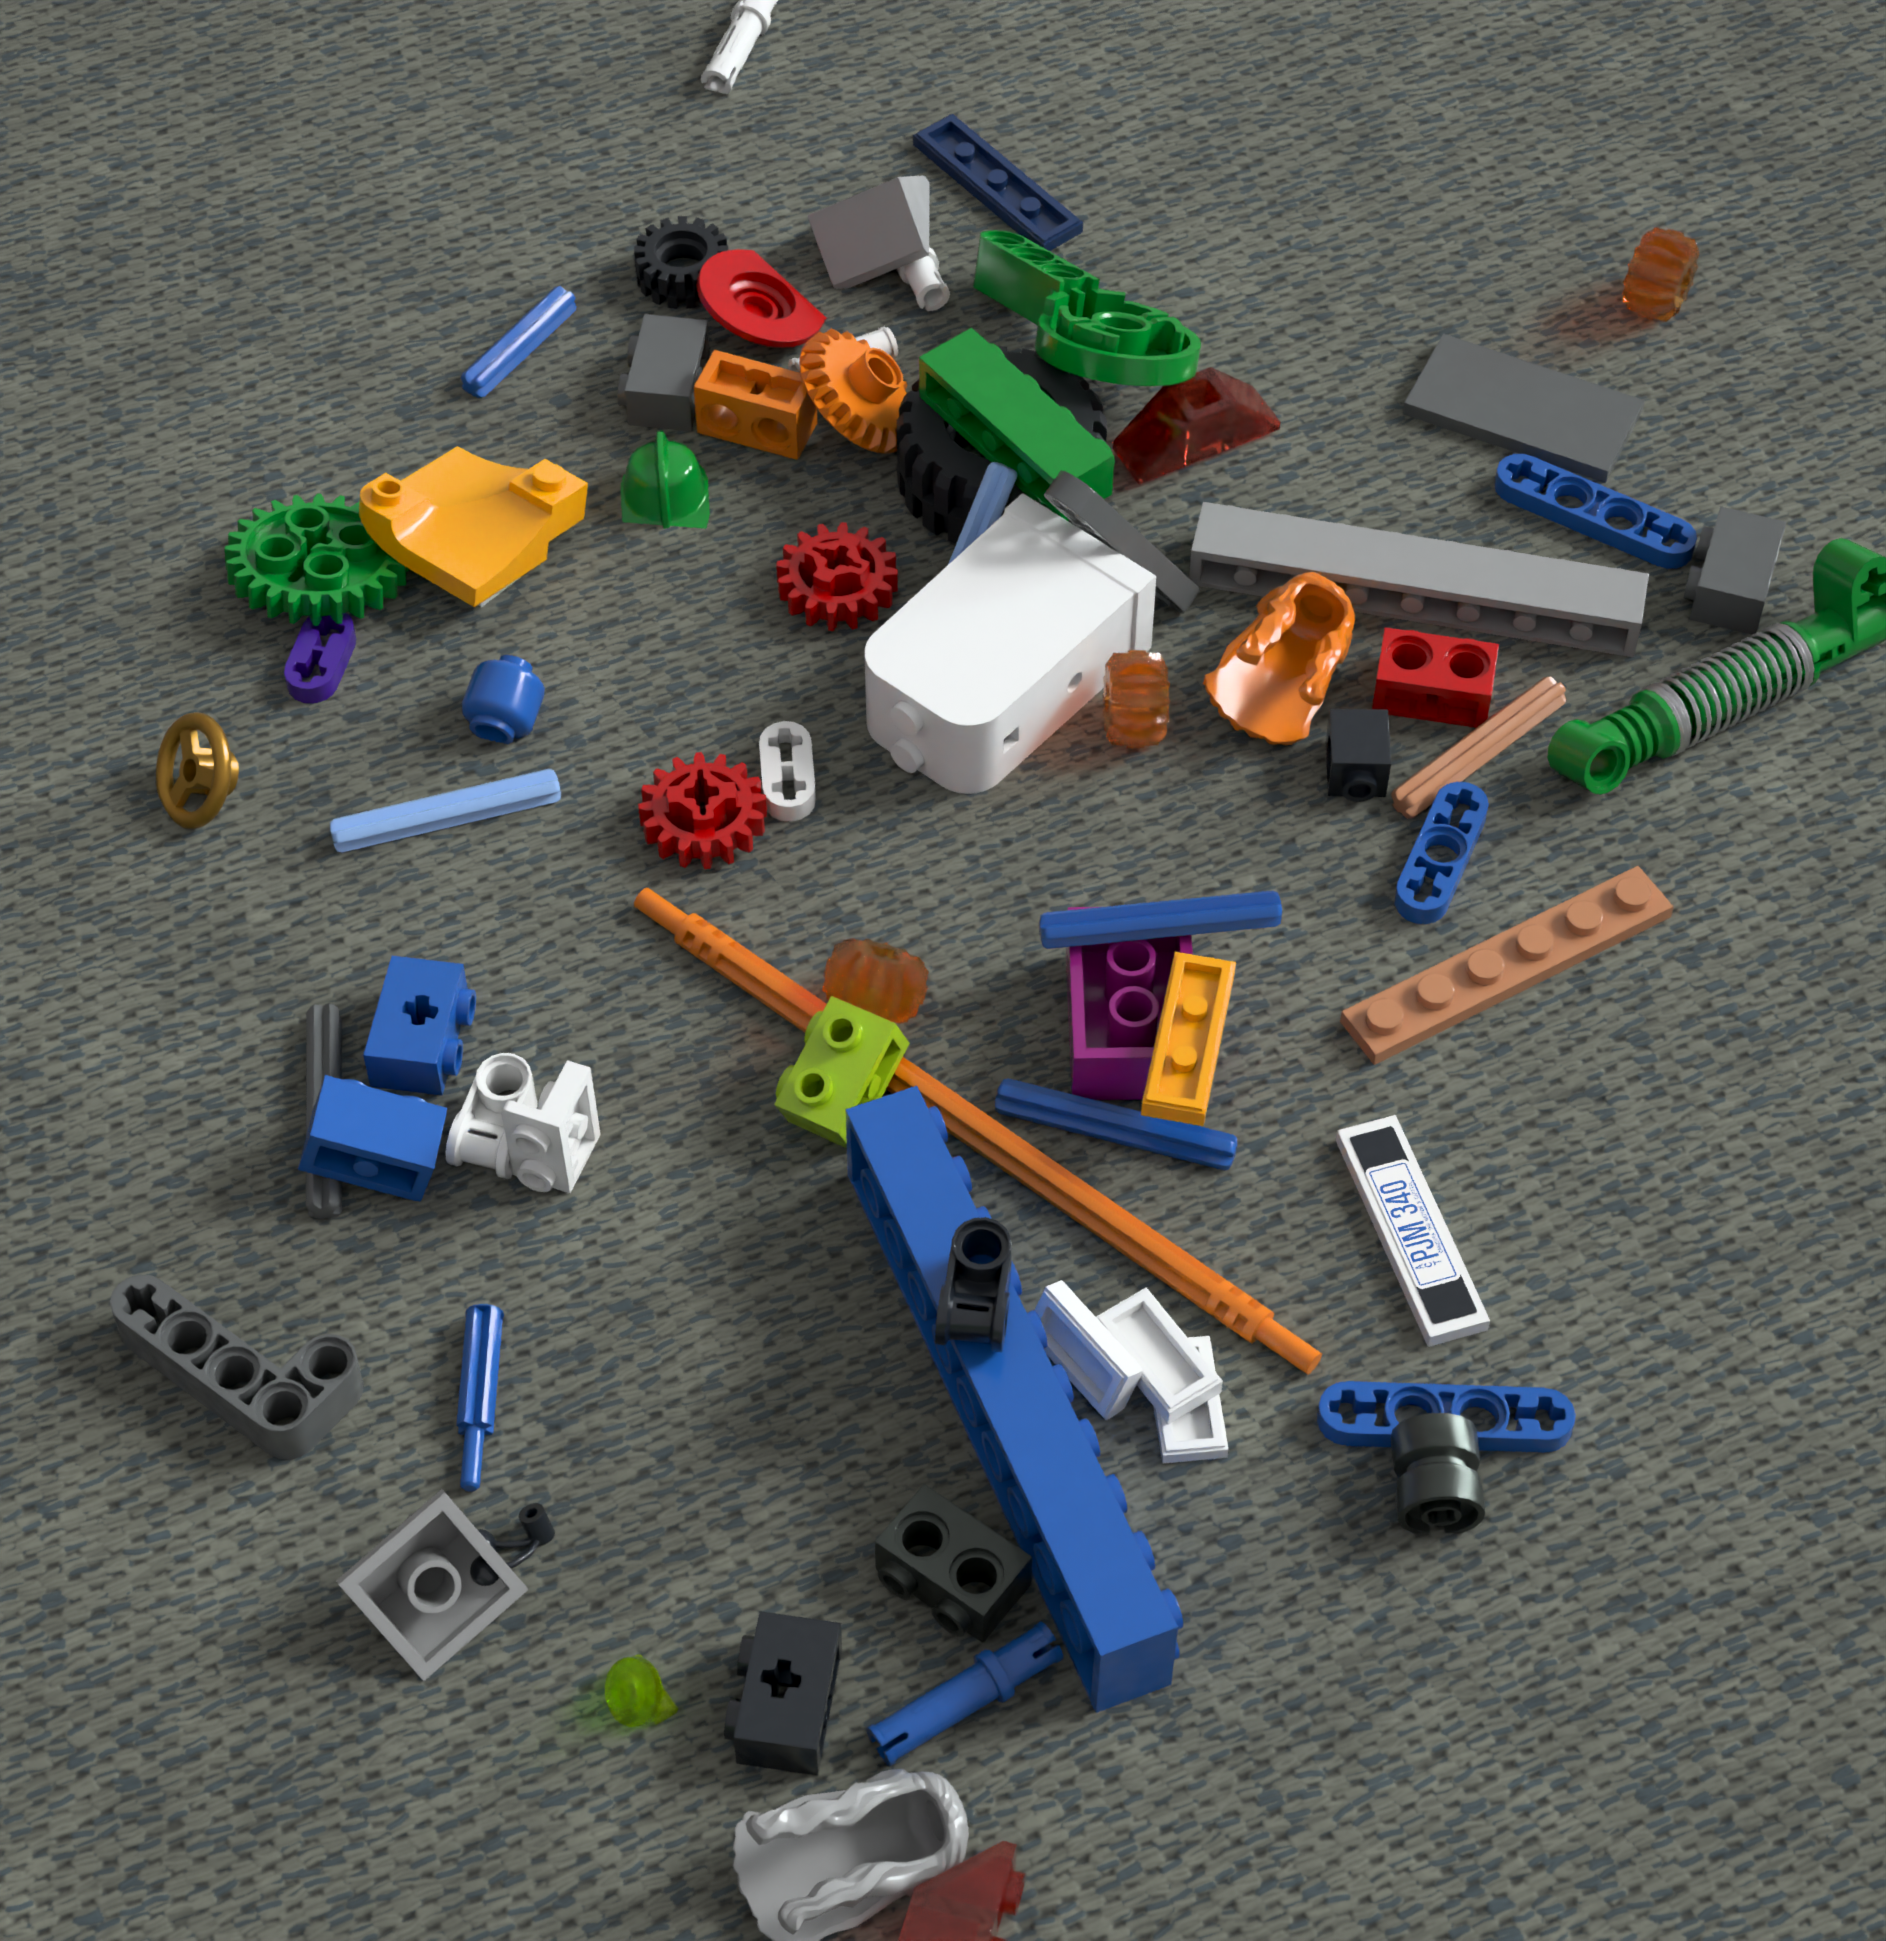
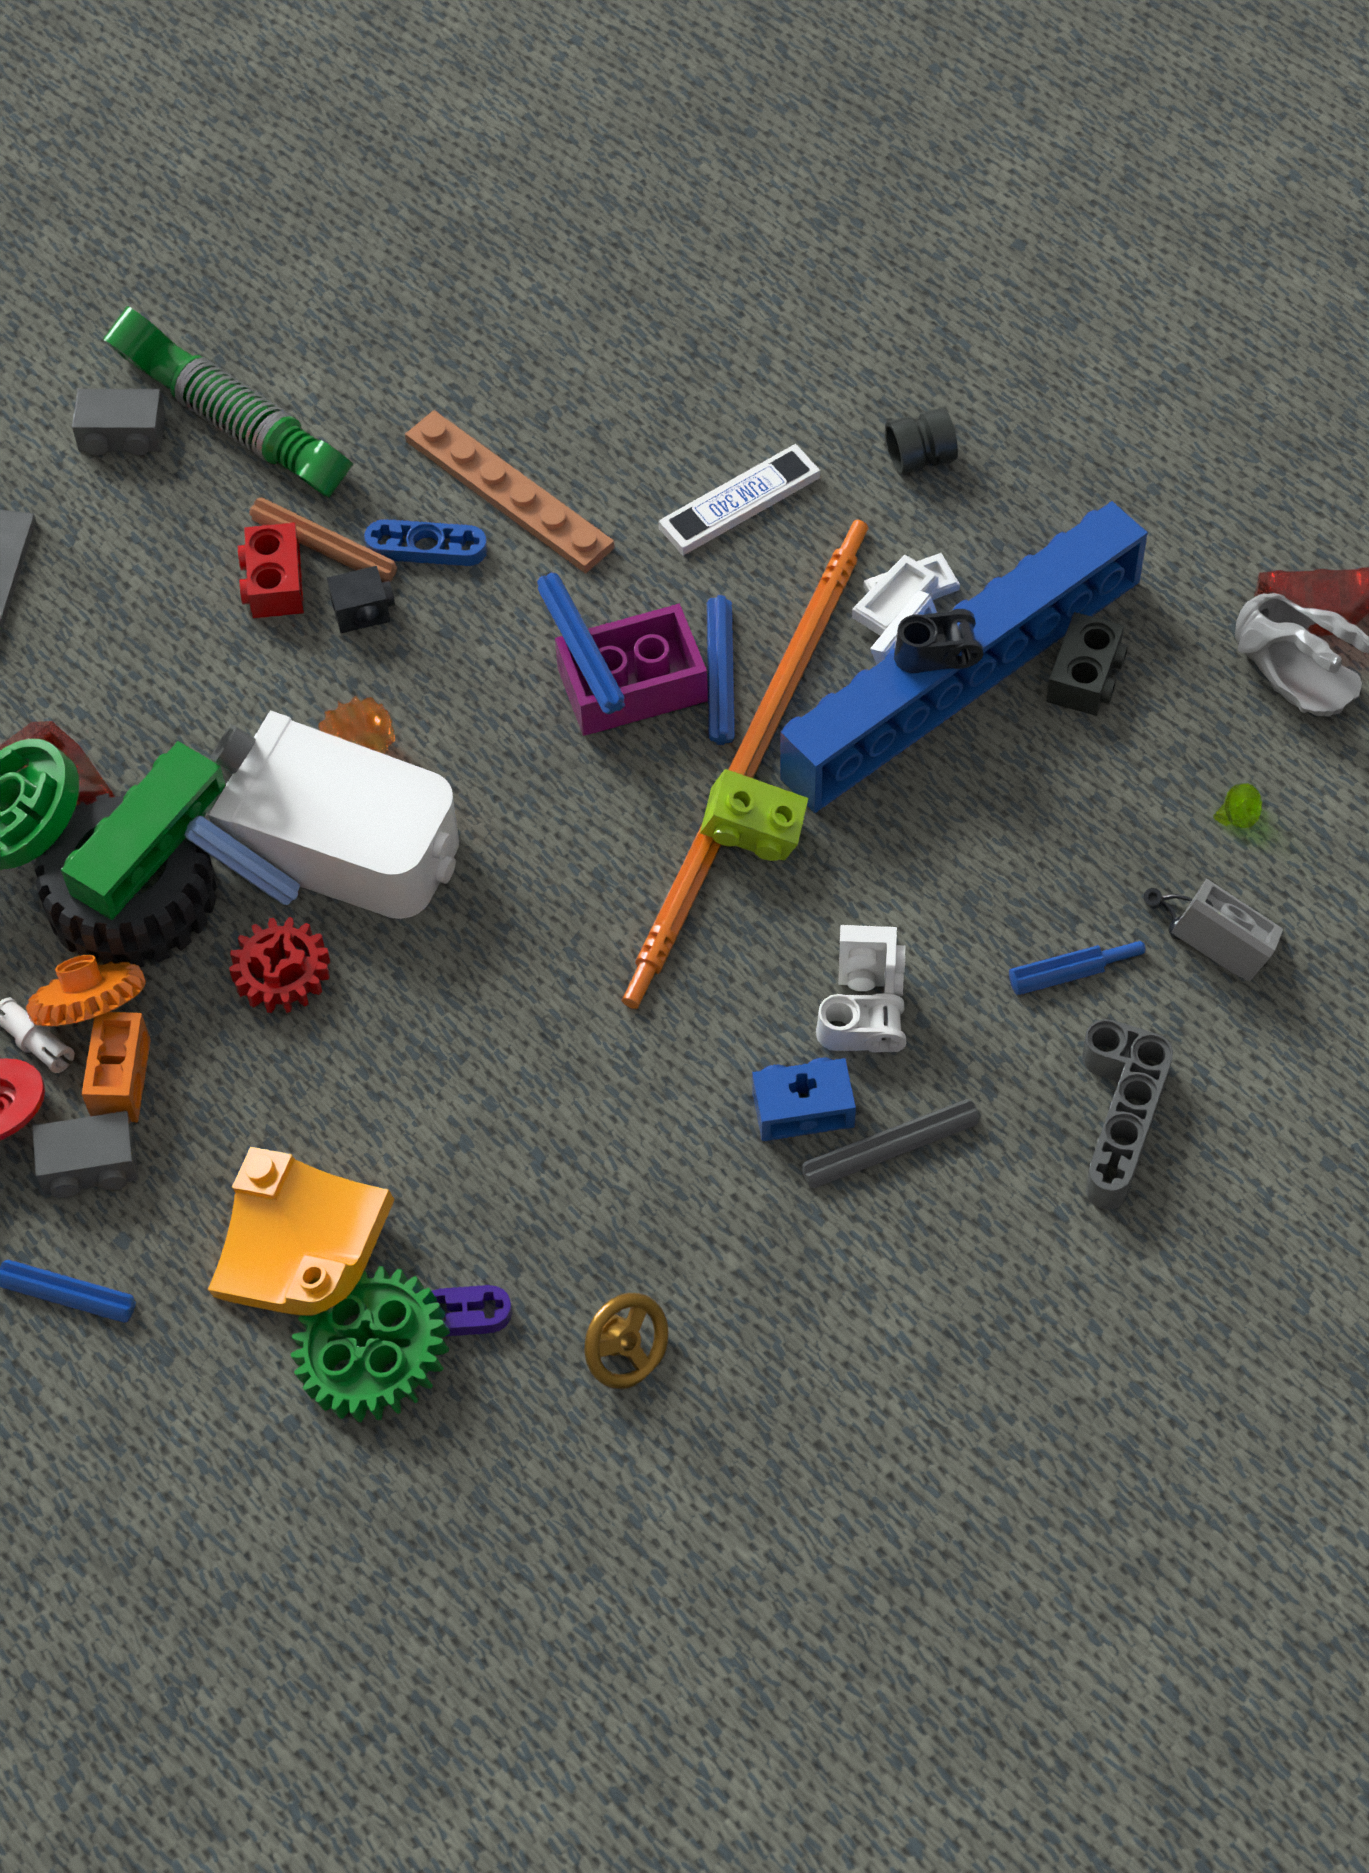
camera: 105 degrees left, 5 degrees up
(373, 1138) = (917, 1082): brick -> none
(445, 810) = (592, 1164): light blue axle -> none
(503, 699) = (478, 1152): blue head -> none
(665, 486) = (210, 1124): green piece -> none
(673, 810) = (538, 1000): red gear -> none
(790, 1730) = (1209, 722): black brick -> none
(799, 770) = (479, 947): white beam -> none
(876, 978) = (667, 820): clear orange gear -> none
(988, 1679) = (1148, 630): blue pin -> none
(1188, 1039) = (671, 606): light orange tile -> none
(1284, 660) = (289, 656): orange hair -> none
(1424, 578) = (178, 603): light grey brick -> none
(1452, 1400) = (873, 455): blue beam -> none
(1598, 506) = (69, 517): blue beam -> none

